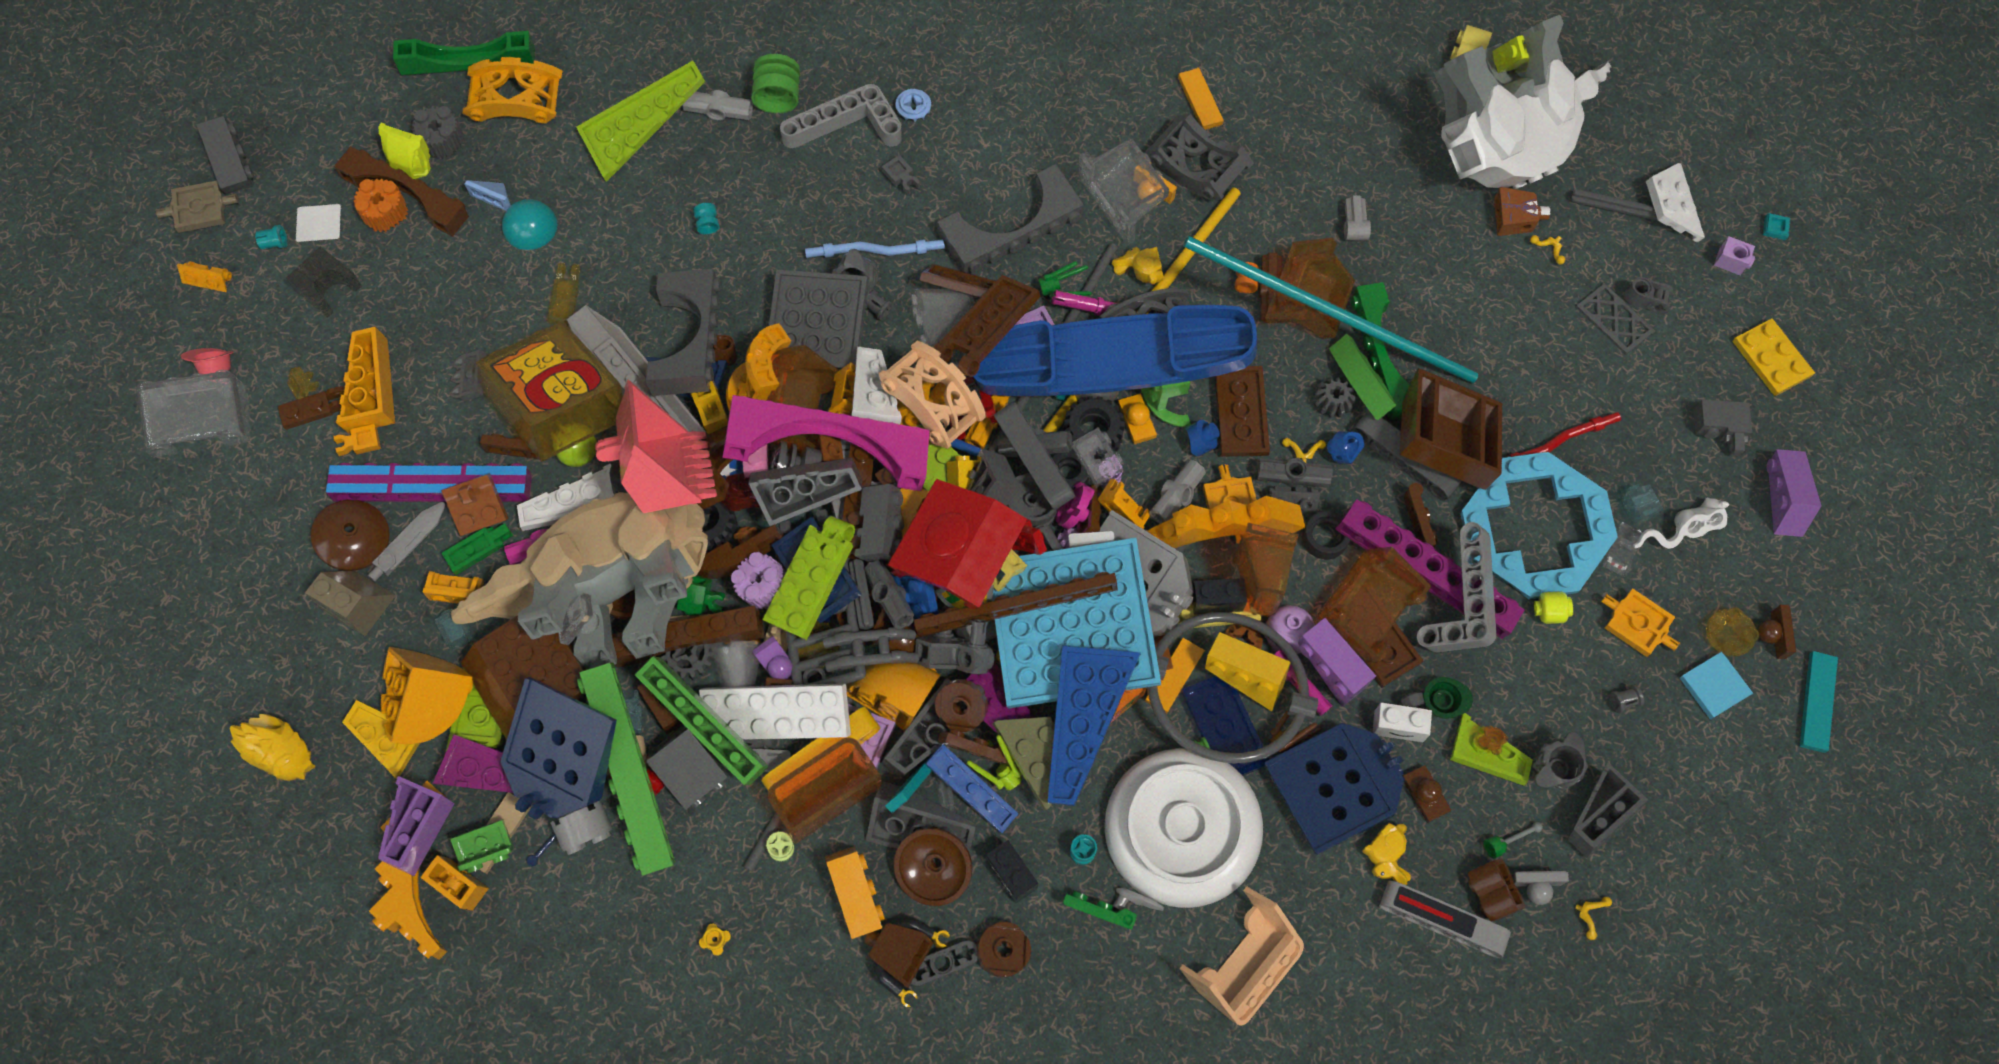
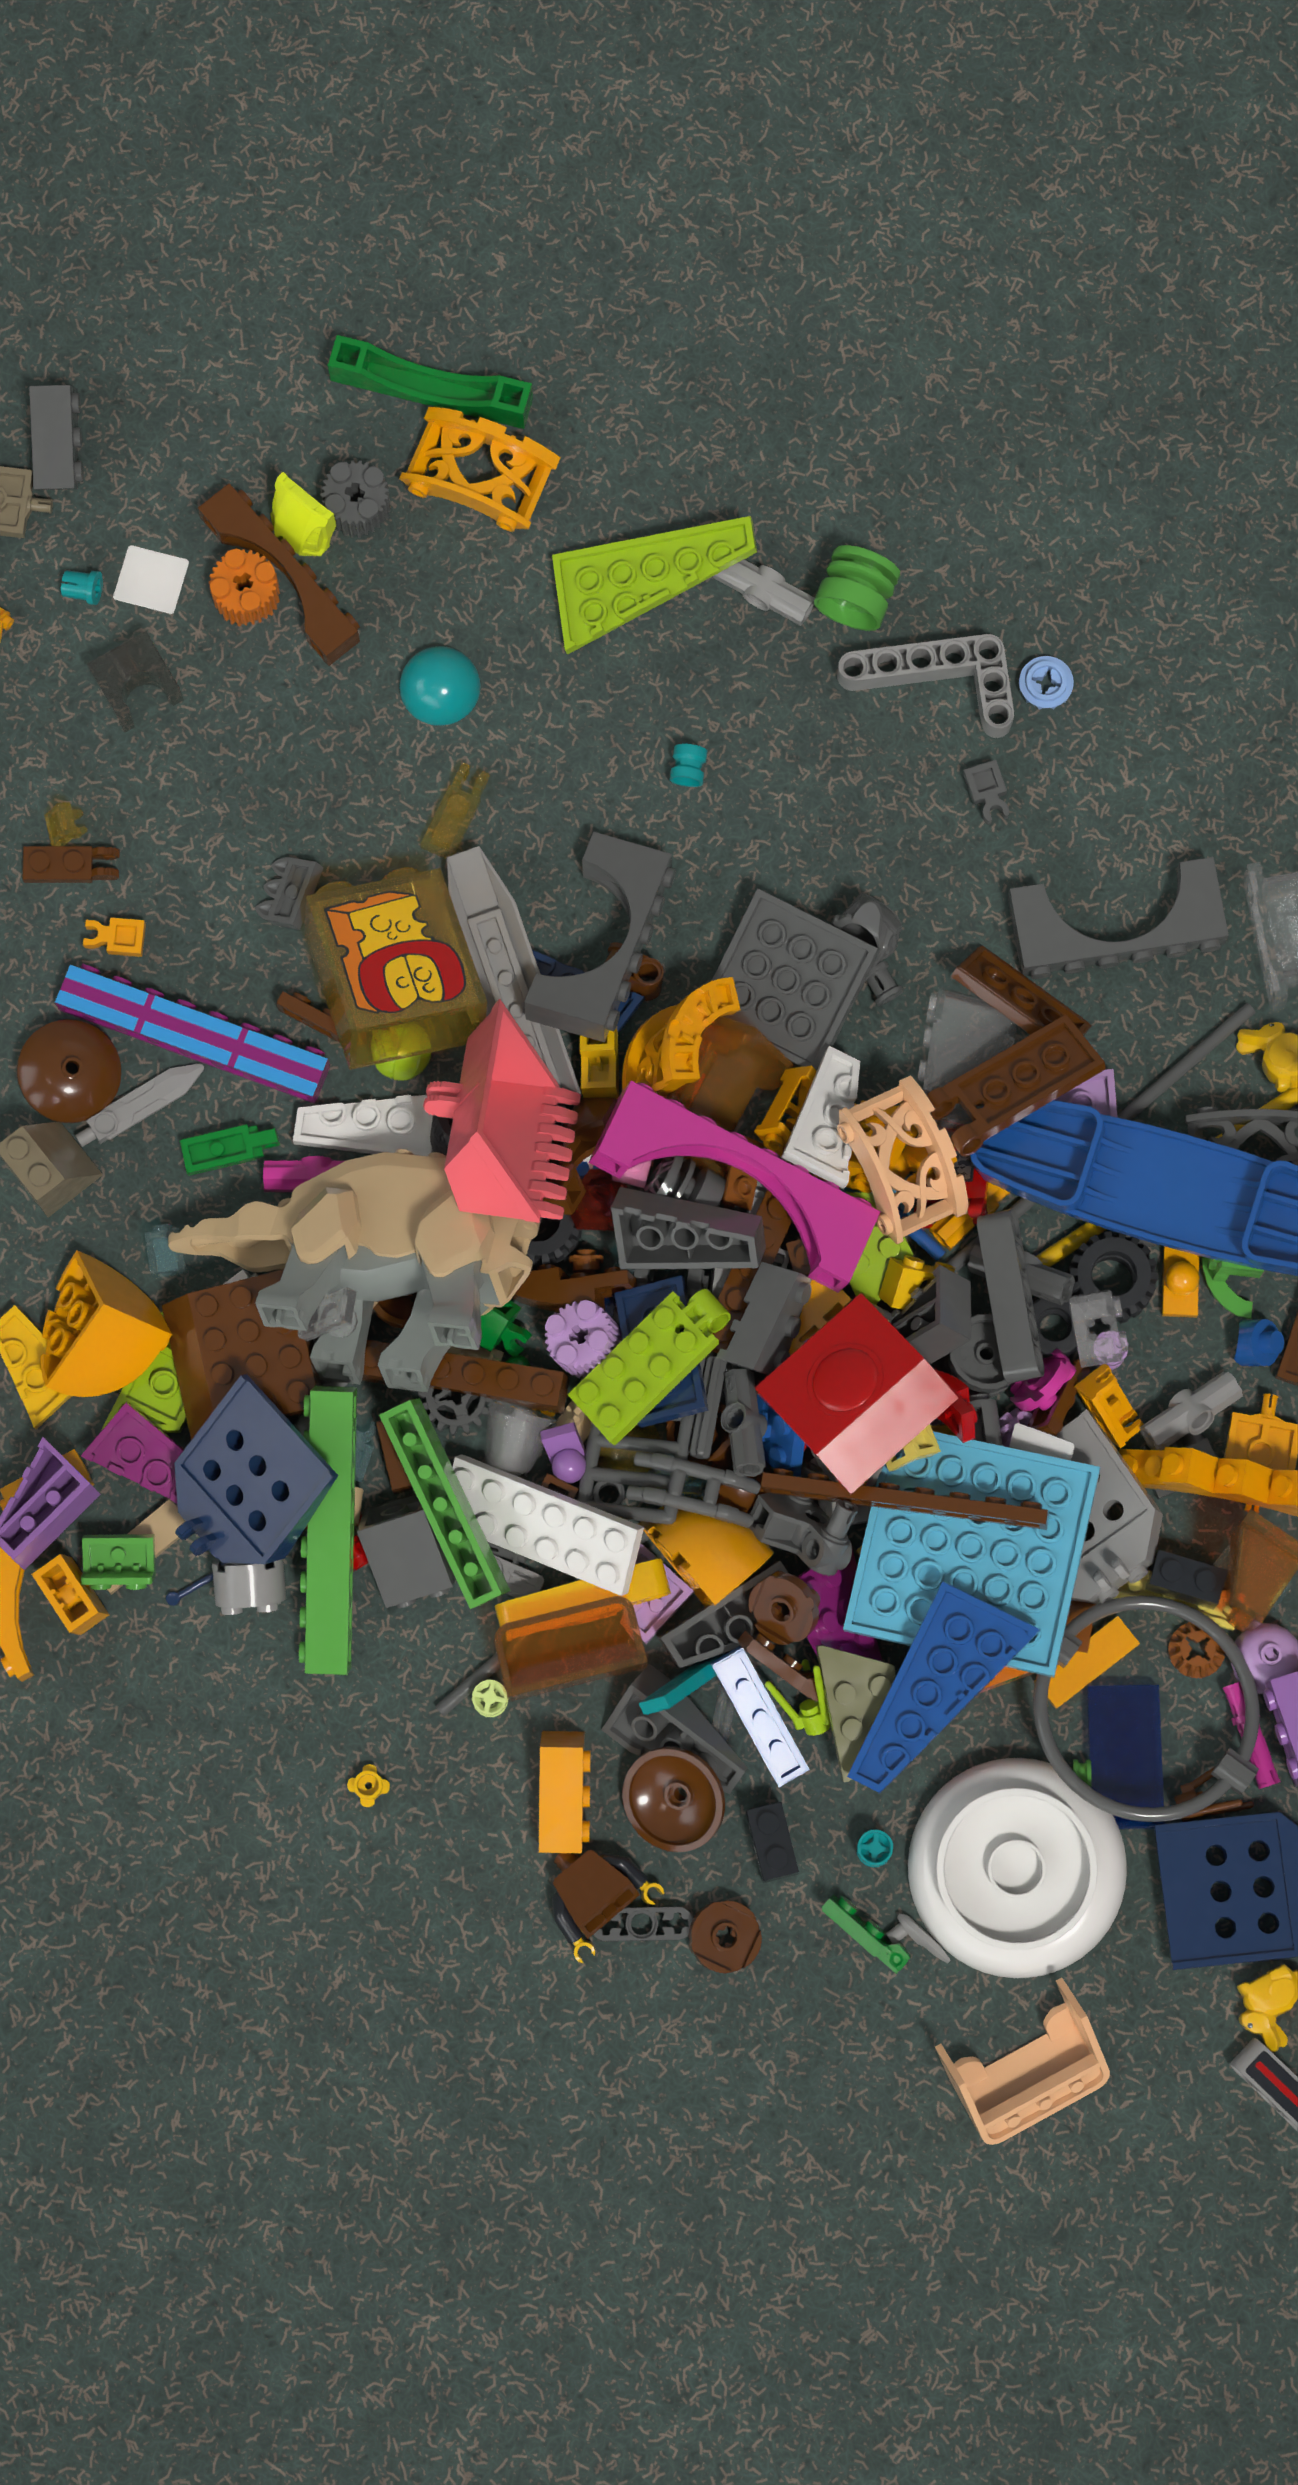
camera: 25 degrees right, 10 degrees up
(368, 382) = (153, 858): light orange wedge -> none
(450, 588) = (180, 1193): light orange hinge -> none
(475, 504) = (243, 1089): dark orange hinge -> none
(489, 192) = (403, 617): light blue slope -> none
(919, 246) = (974, 913): light blue bar -> none
(1050, 282) = (1137, 1037): green plant -> none
(1079, 302) = (1188, 1094): dark pink pin -> none
(1248, 669) = (1183, 1694): yellow wedge -> none

